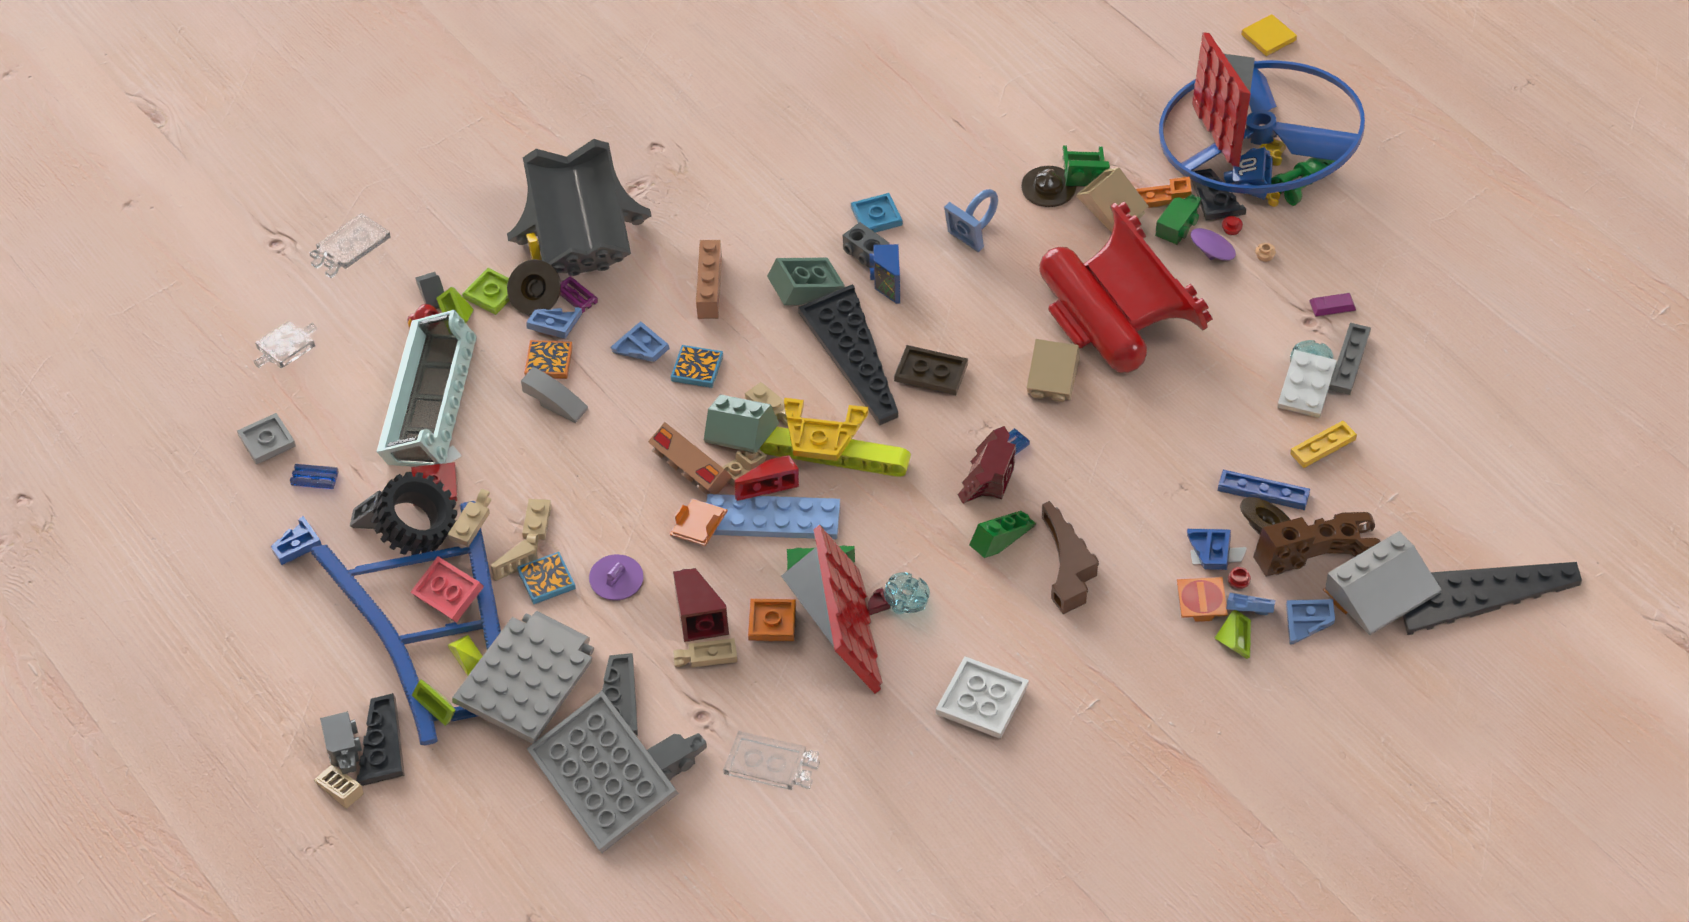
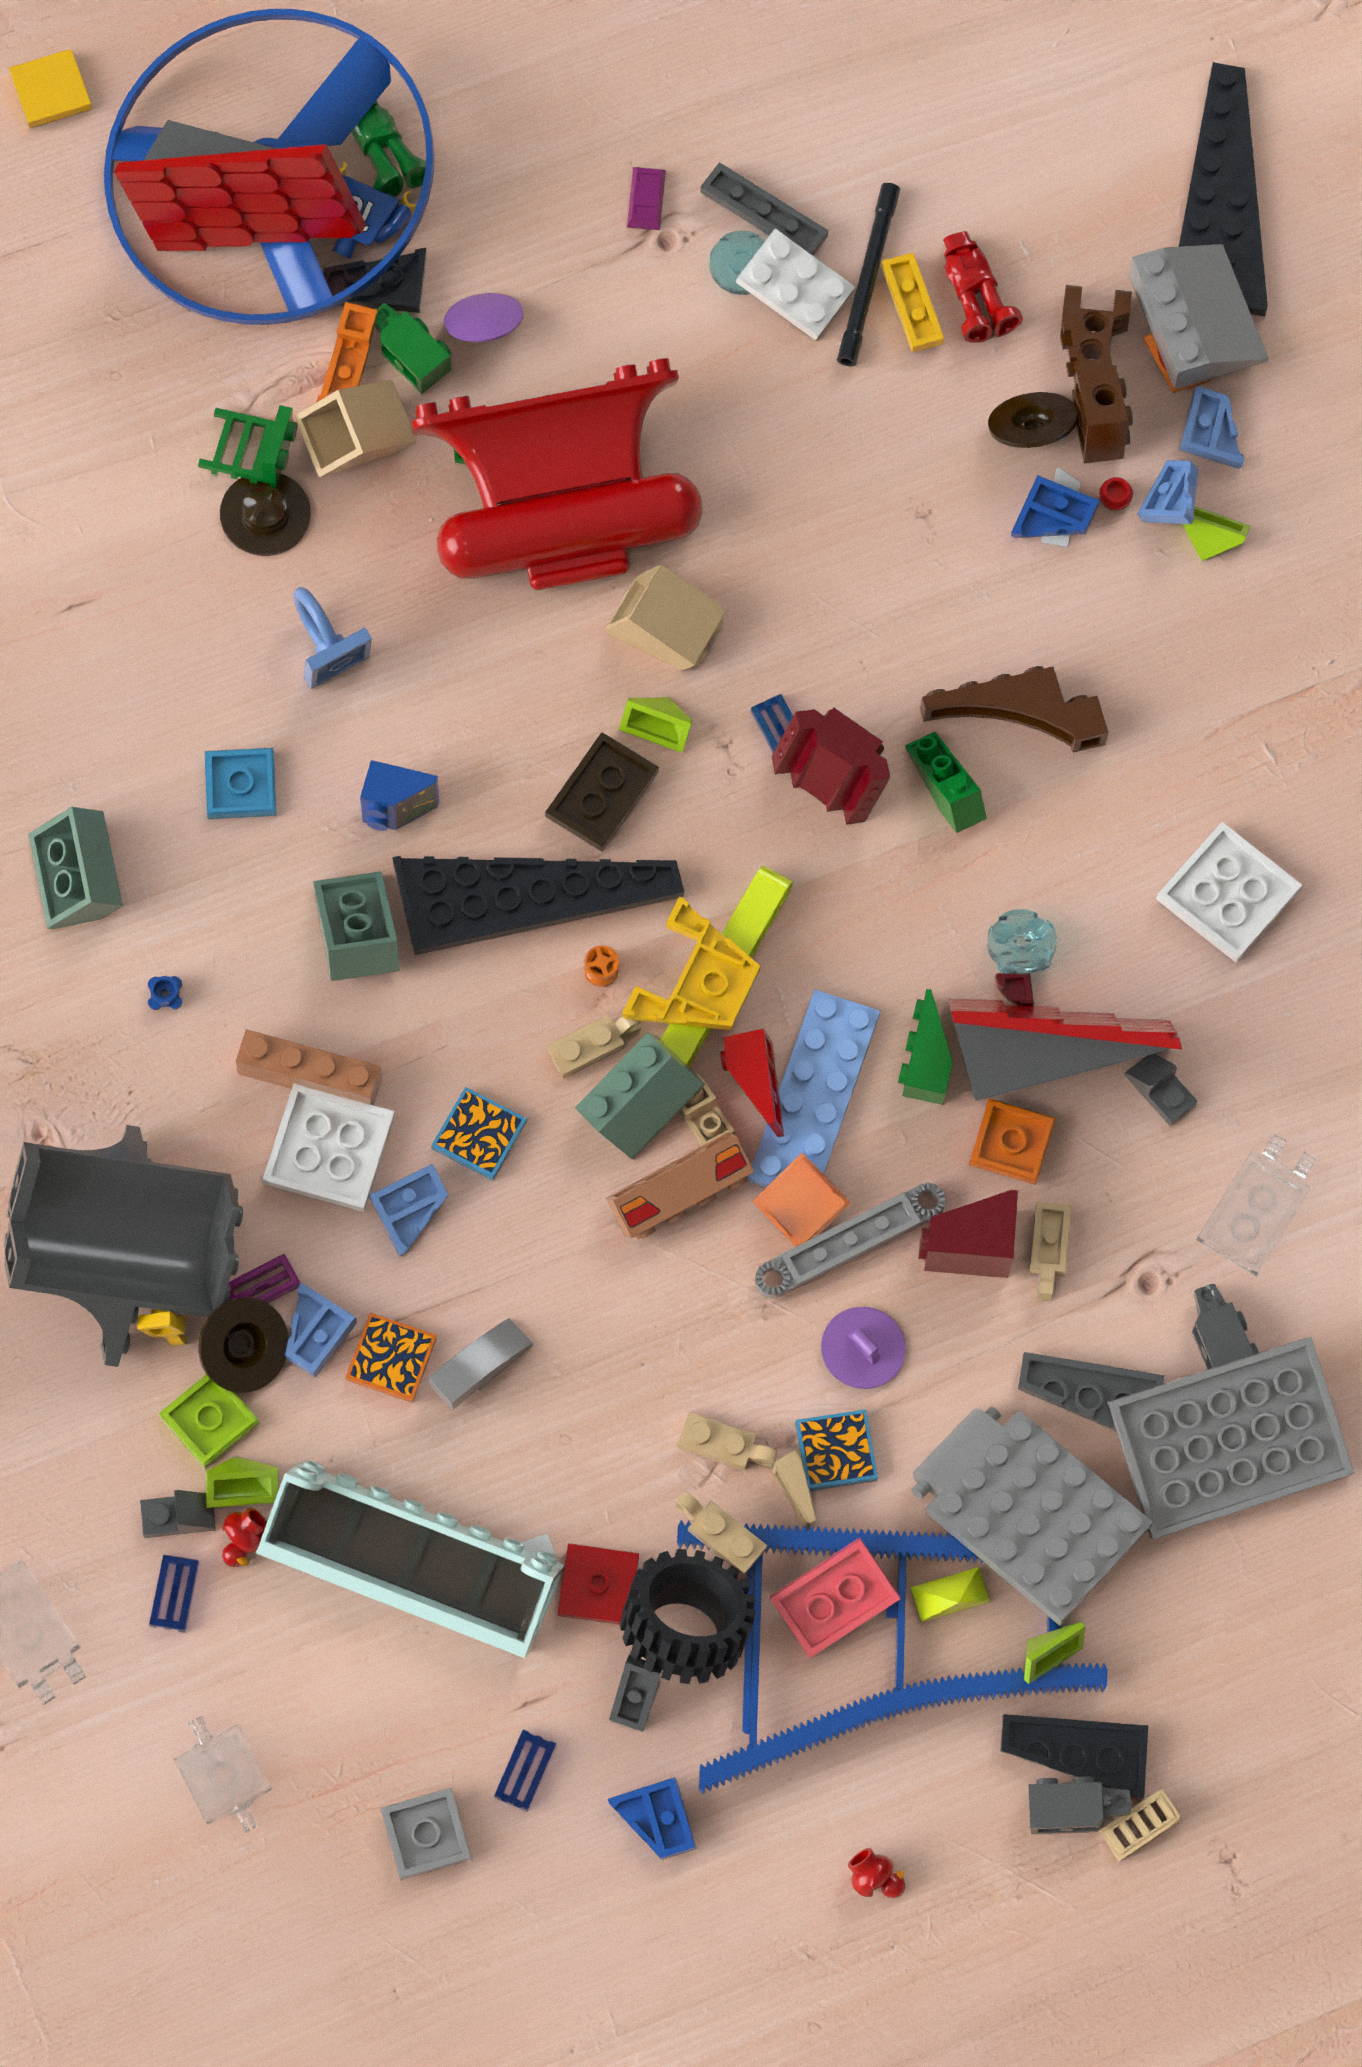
camera: 80 degrees left, 20 degrees up
(282, 650) = (875, 1871): none -> red animal
(385, 303) = (168, 1623): none -> clear blue tile
(665, 300) = (328, 1147): none -> white plate
(680, 550) = (849, 1240): none -> light grey plate
(737, 211) = (160, 984): none -> blue plate
(798, 157) = (75, 868): none -> sand green slope
(819, 395) = (601, 957): none -> orange wheel
(835, 692) = (1161, 1088): none -> dark grey slope
(860, 242) = (309, 809): dark grey brick -> none
(988, 385) = (657, 721): none -> lime slope
(1202, 598) = (1141, 551): piece -> none
(1232, 225) = (444, 278): red plate -> none
(1265, 252) = (516, 259): light nougat plate -> none
(1265, 489) = (966, 409): blue tile -> none
(1286, 421) = (852, 336): none -> black piece
(1354, 470) = (970, 274): none -> red piece

